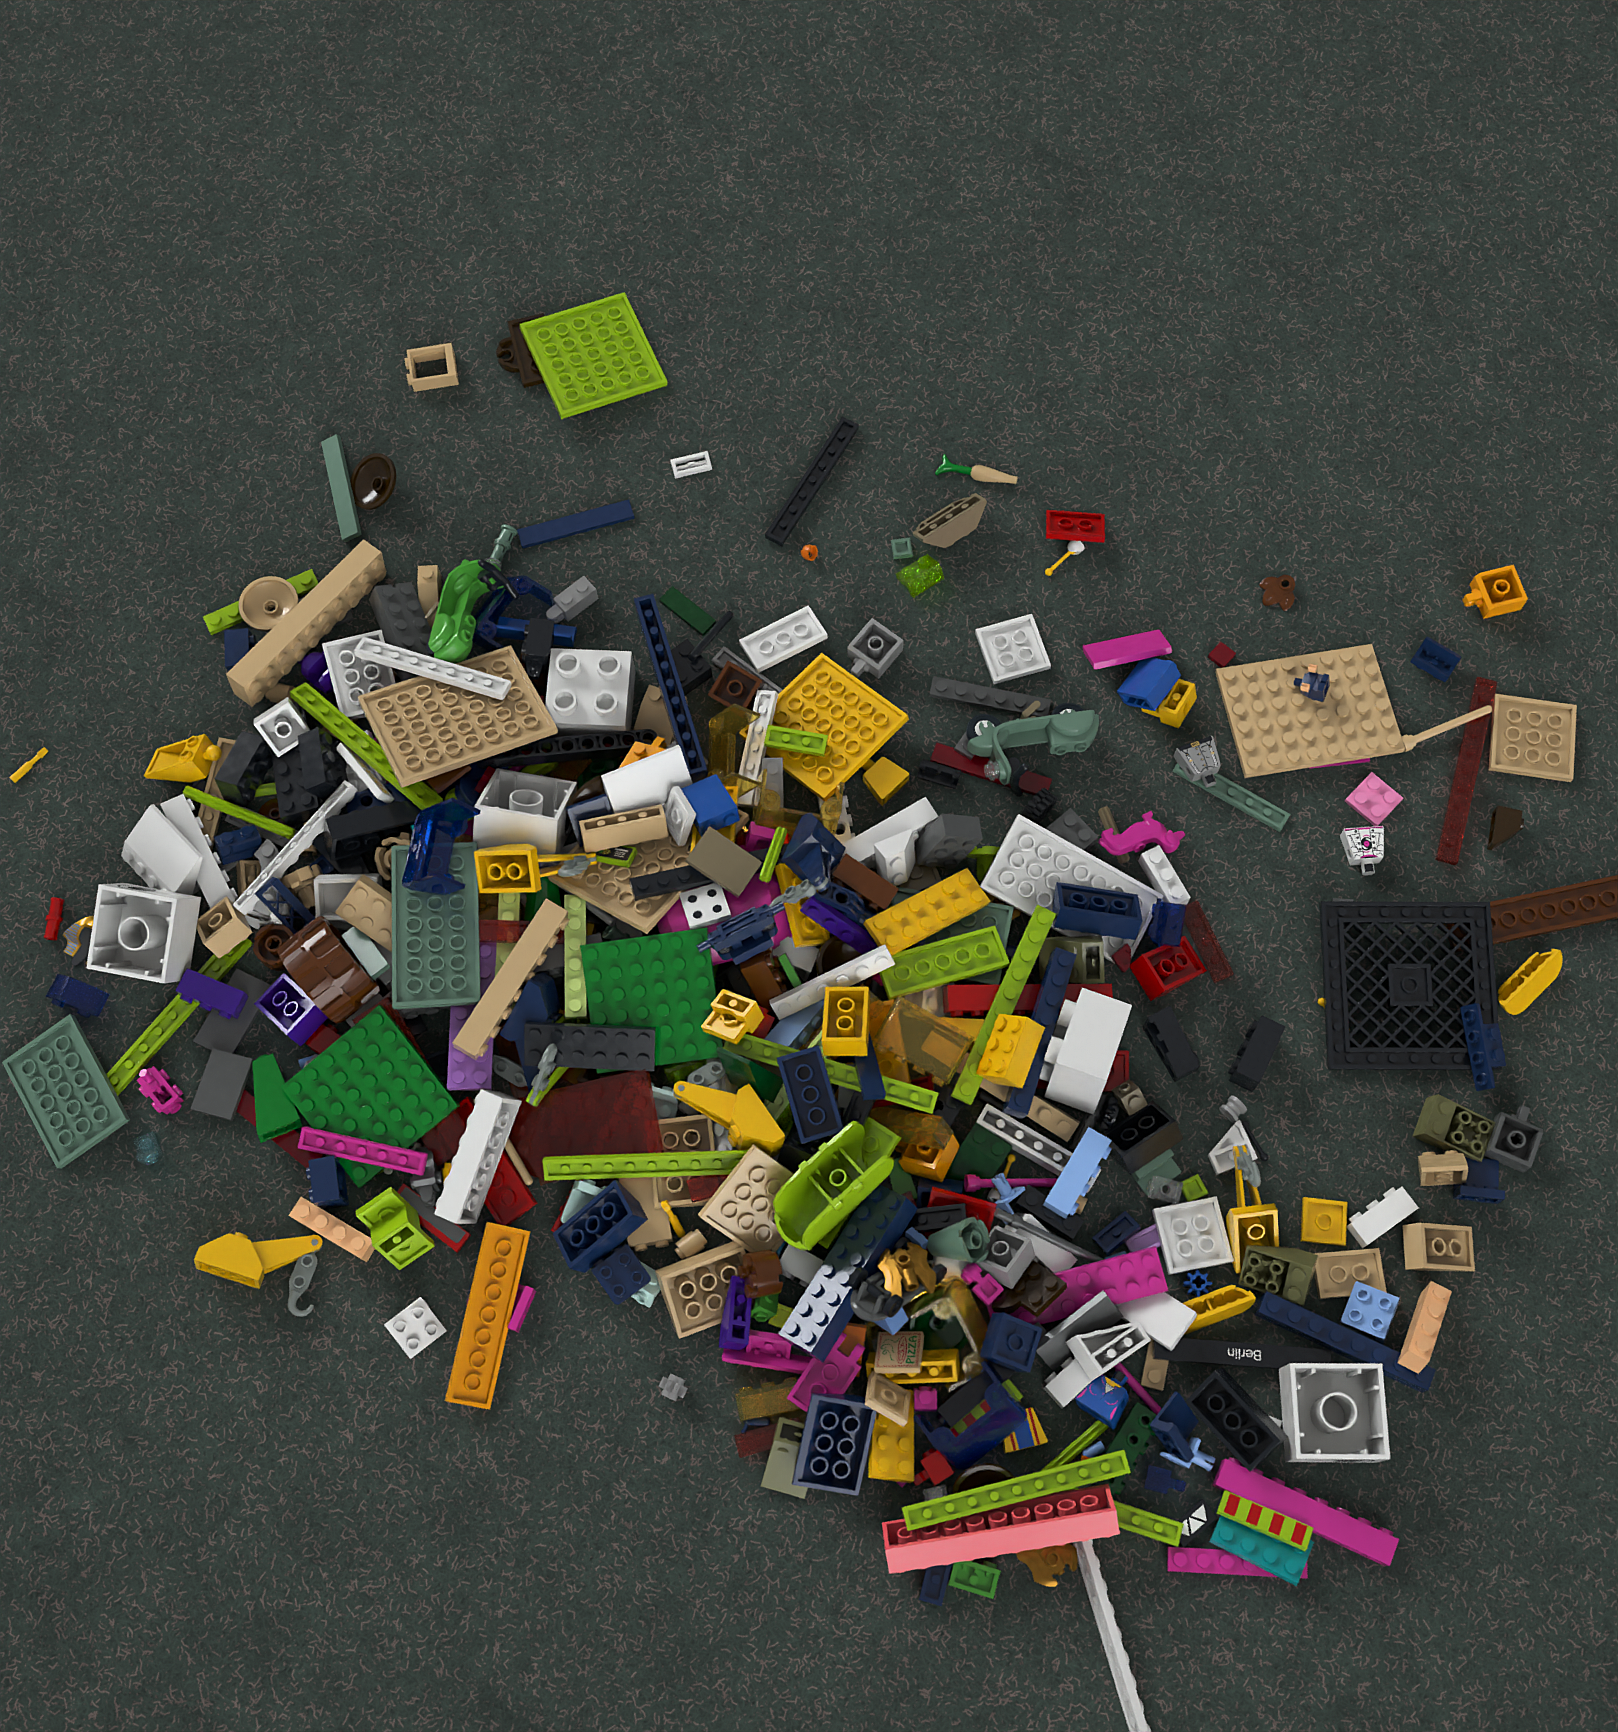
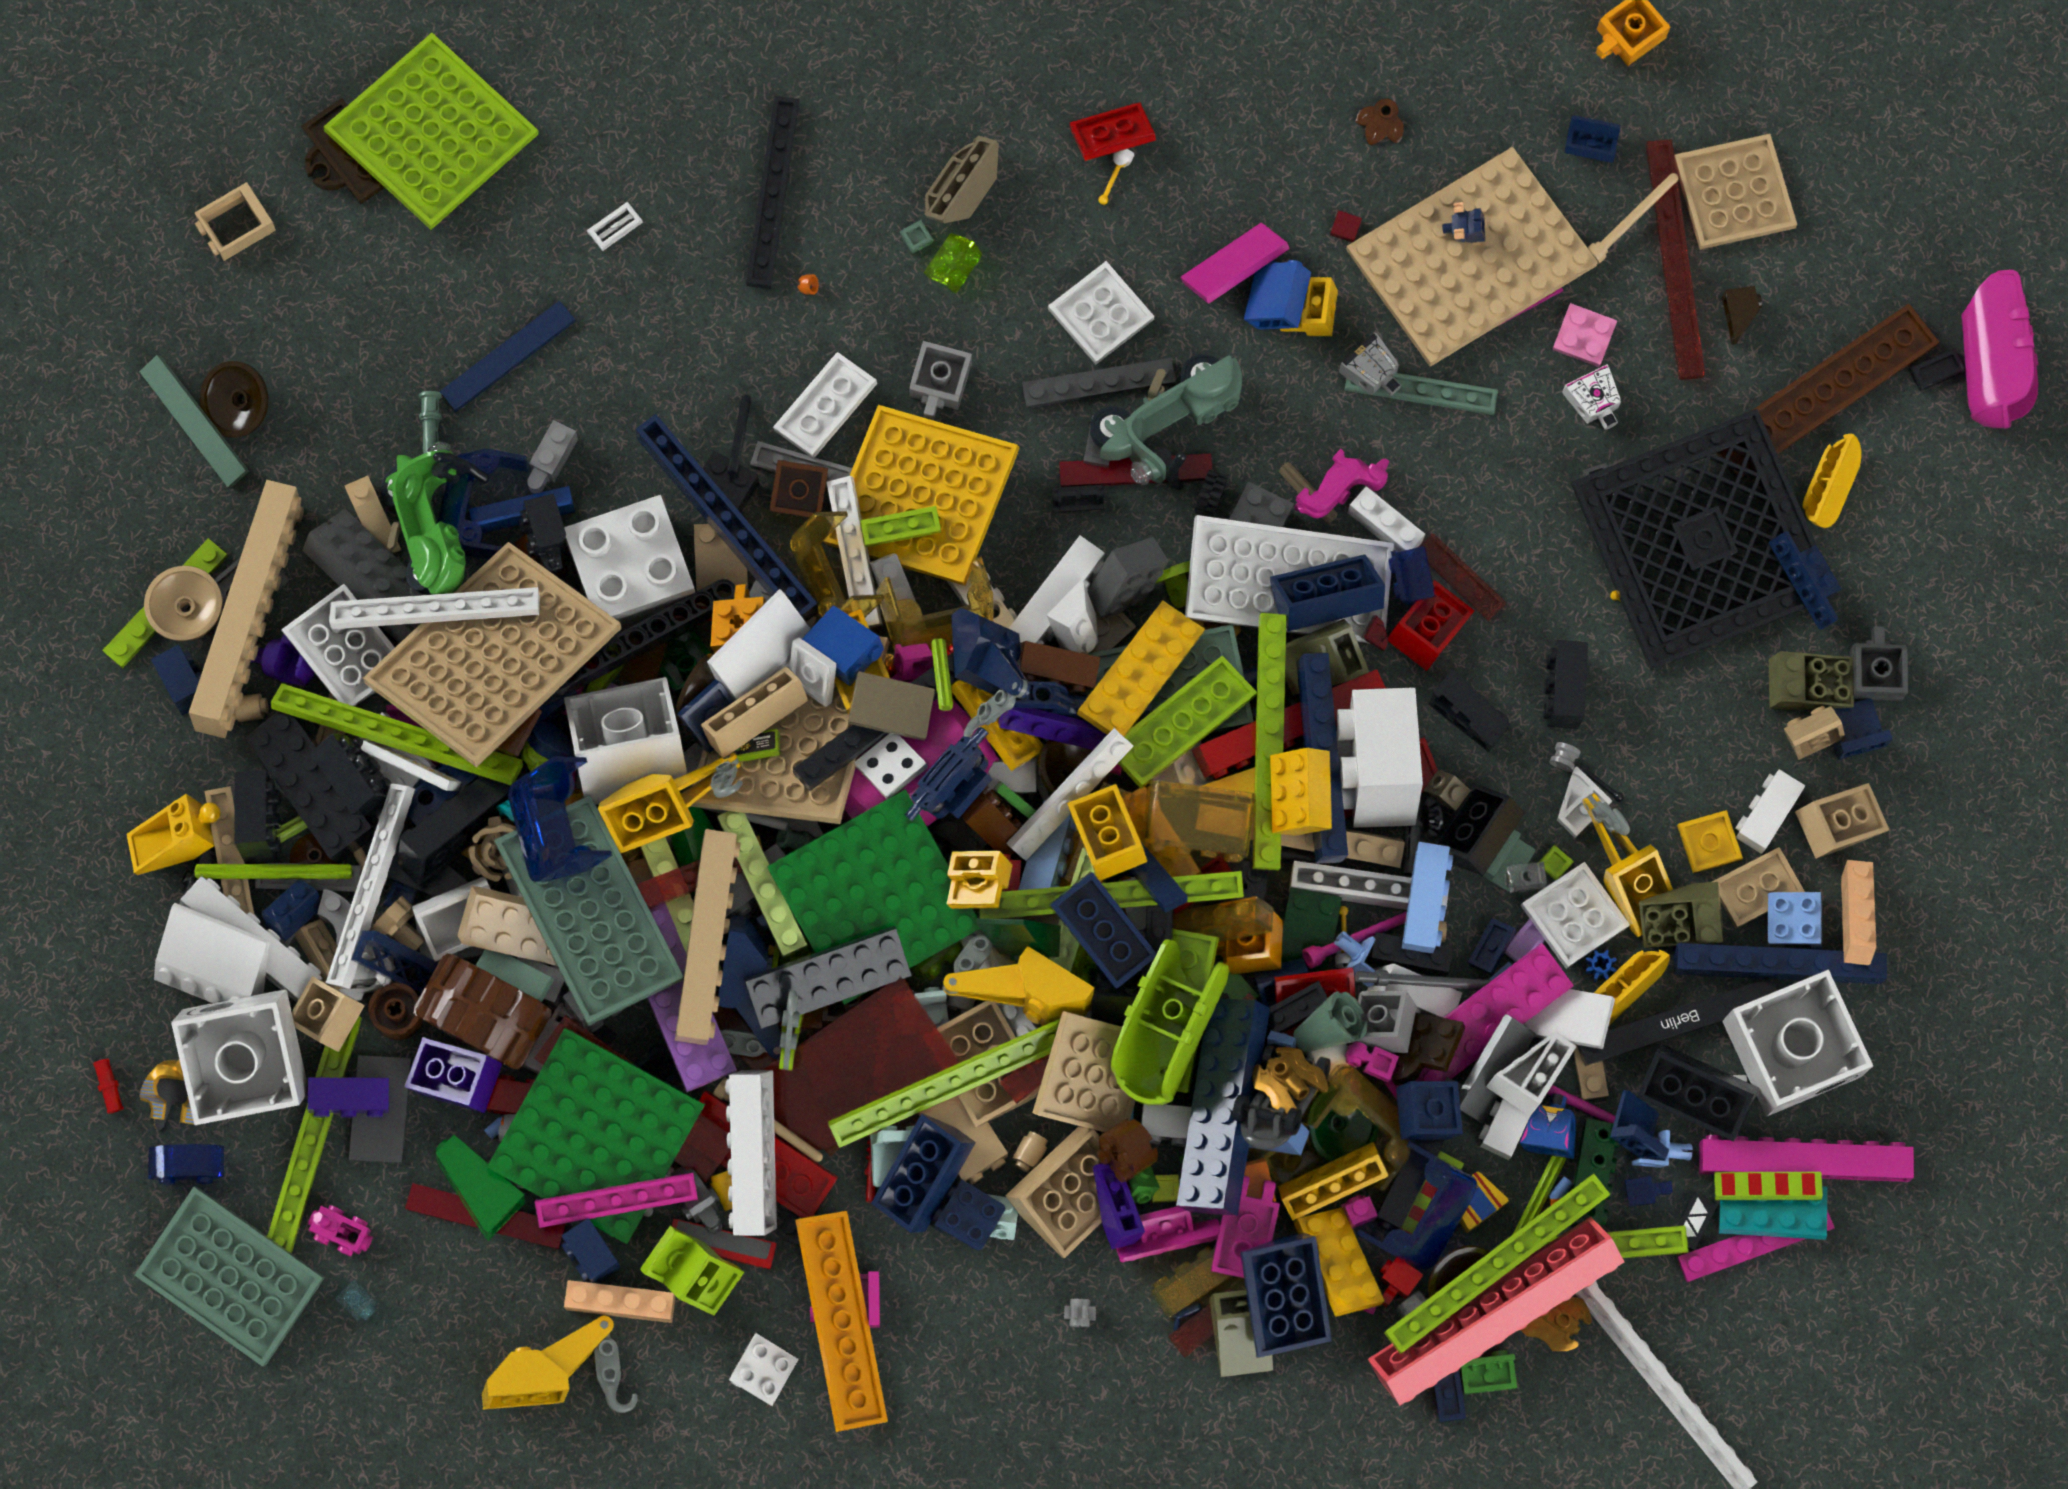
camera: 30 degrees left, 5 degrees up
(222, 1084) = (410, 1194): dark grey tile -> none
(281, 726) = (282, 748): white slope -> none
(485, 779) = (558, 717): dark red tile -> none
(673, 1219) = (1001, 1133): yellow piece -> none
(687, 611) = (693, 414): dark green tile -> none
(884, 778) = (1017, 530): yellow torso -> none
(887, 1398) = (1322, 1224): tan tile -> none
(899, 1352) = (1313, 1171): tan tile -> none
(977, 472) = (967, 106): tan piece -> none

